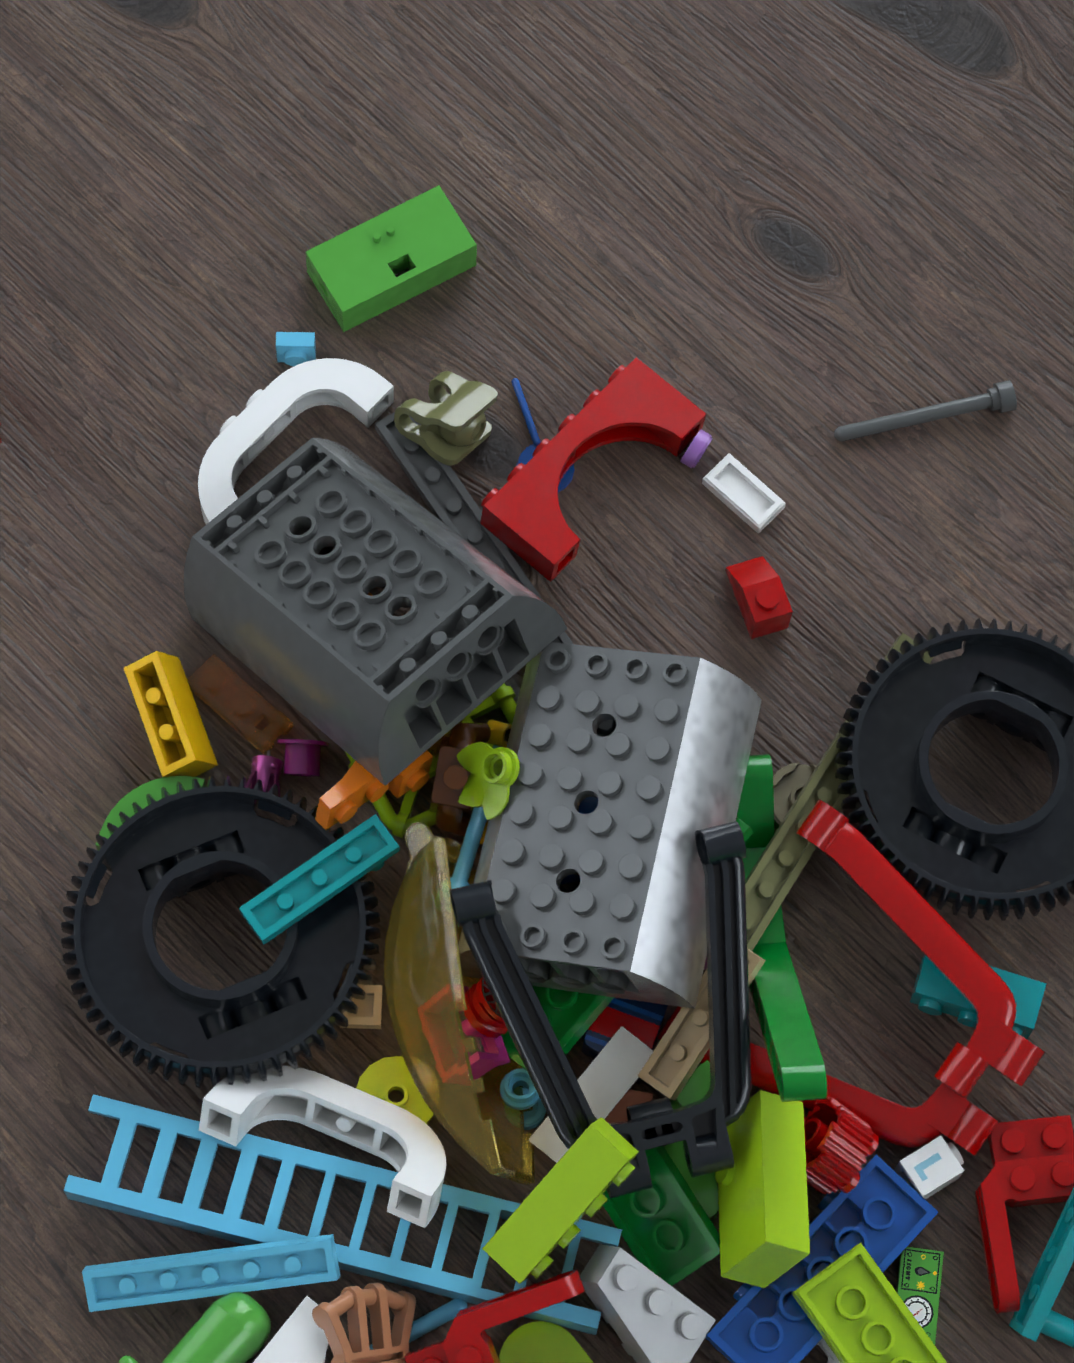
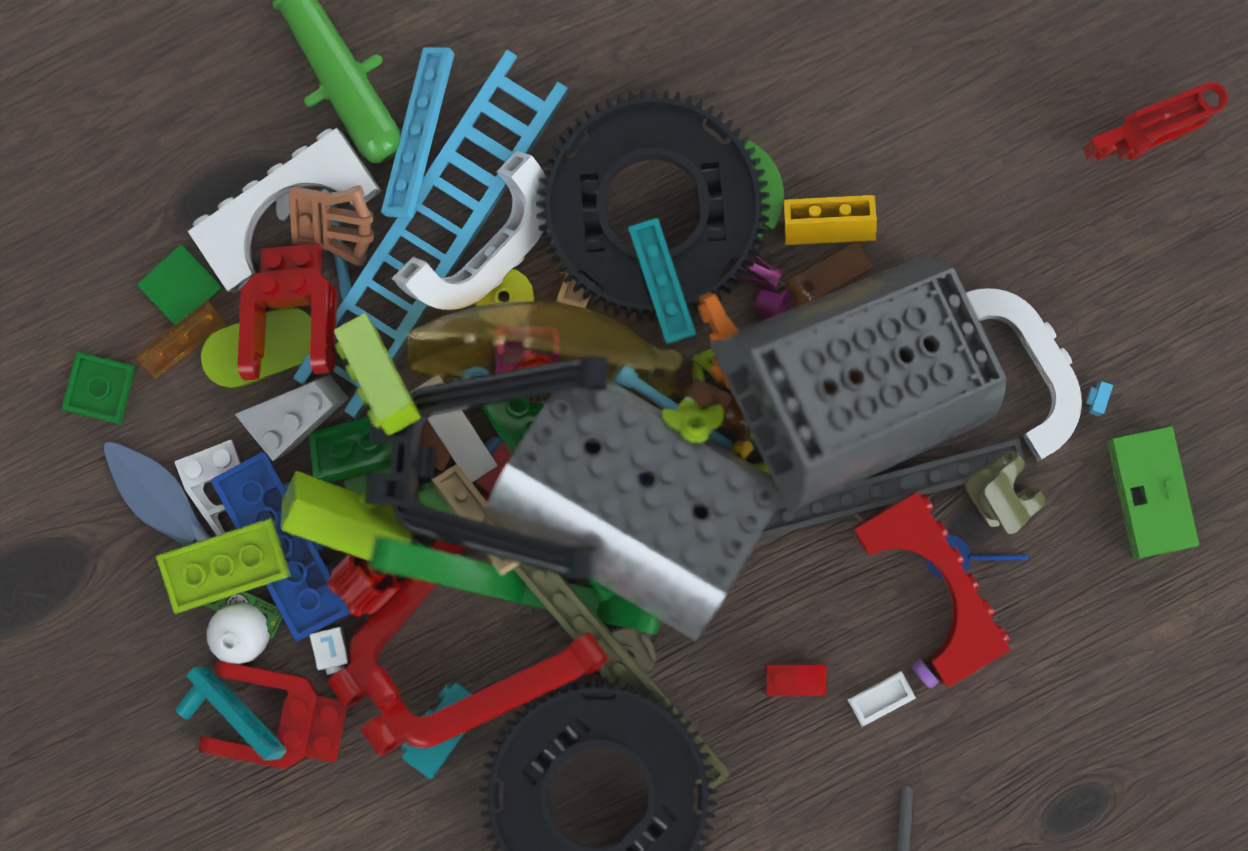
camera: 115 degrees right, 15 degrees up
(954, 1296) = (237, 633): none -> white cylinder

